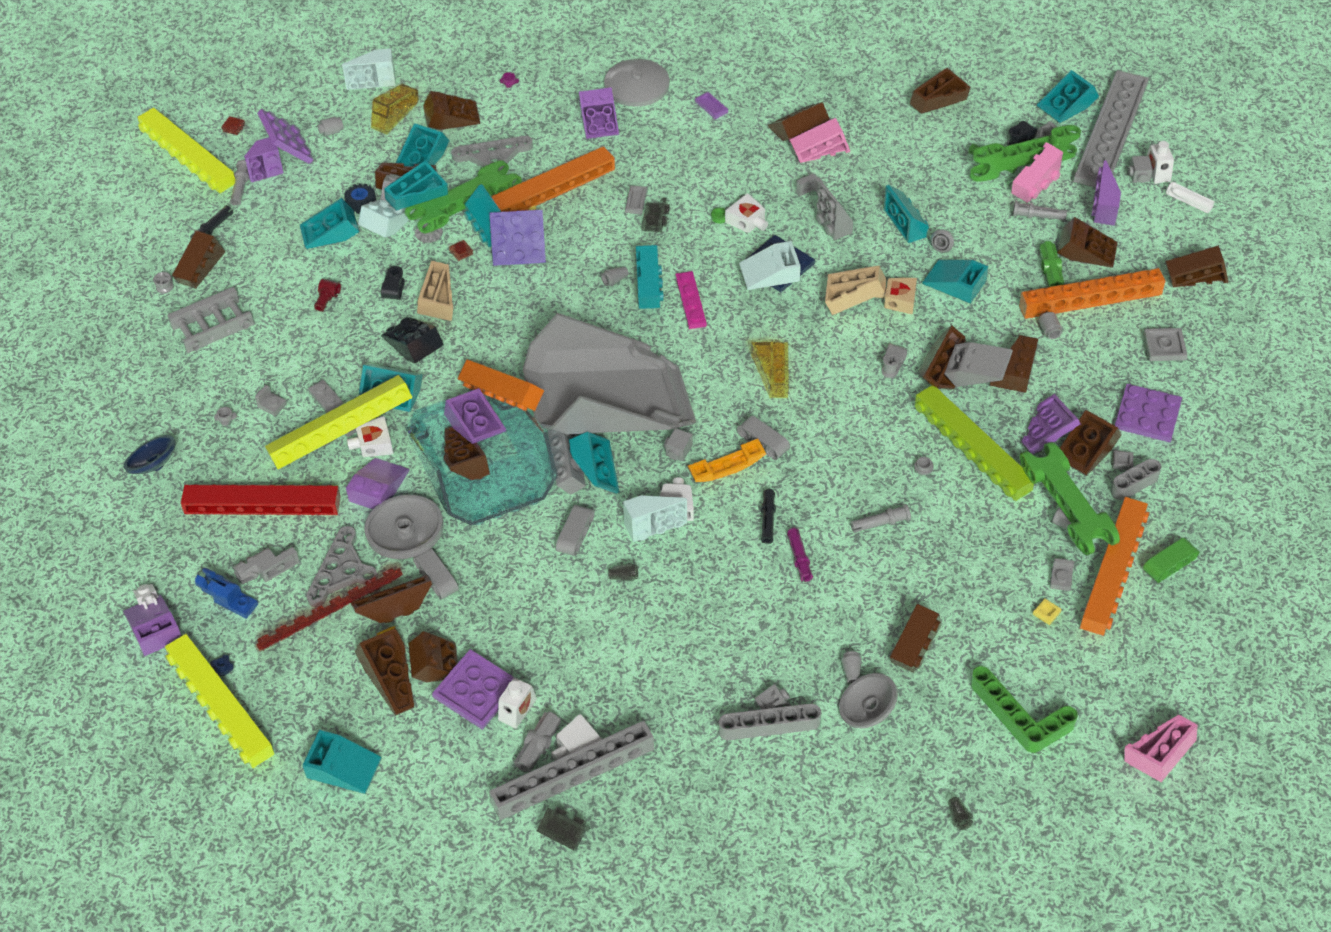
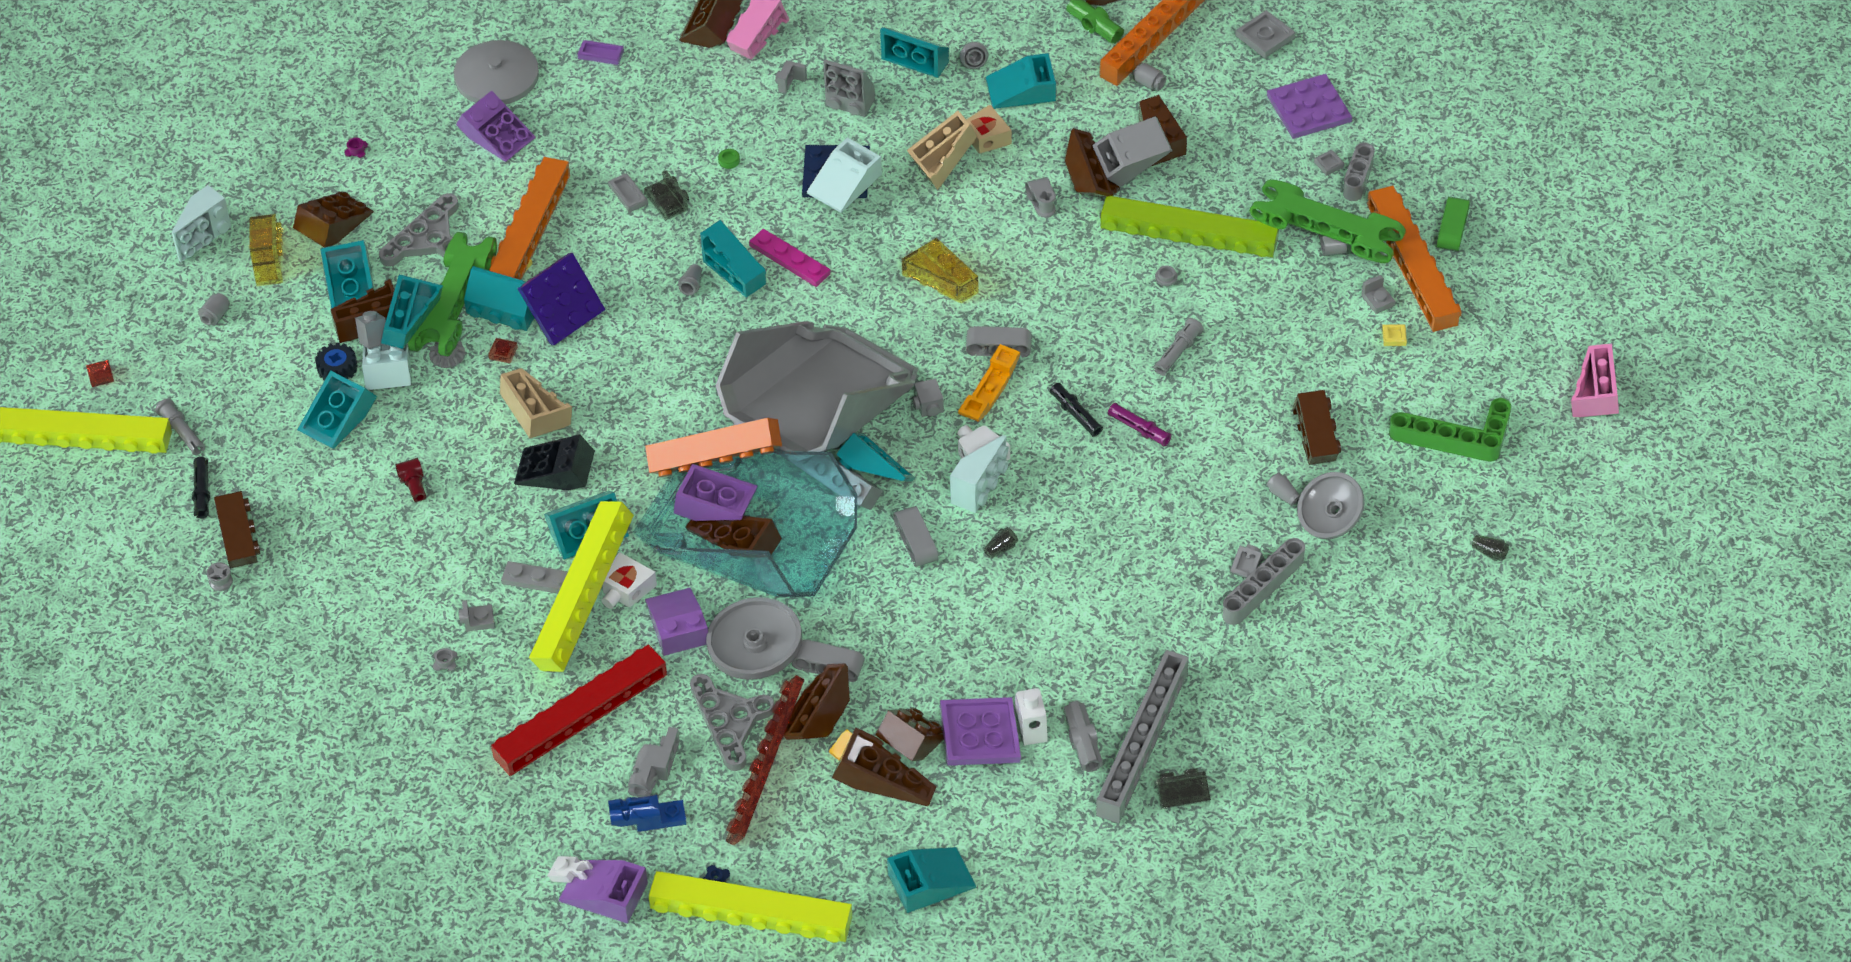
camera: 40 degrees left, 0 degrees up
(150, 455) = (418, 742): dark blue dish -> none
(204, 308) = (304, 565): light grey fence -> none
(263, 160) = (192, 383): medium lavender slope -> none
(285, 136) = (195, 347): medium lavender plate -> none
(393, 283) = (474, 424): black piece -> none
(574, 737) = (1118, 710): white torso -> none
(746, 214) = (760, 141): white torso -> none
(1052, 423) = (1240, 168): medium lavender plate -> none
(1090, 442) = (1289, 159): reddish brown slope -> none

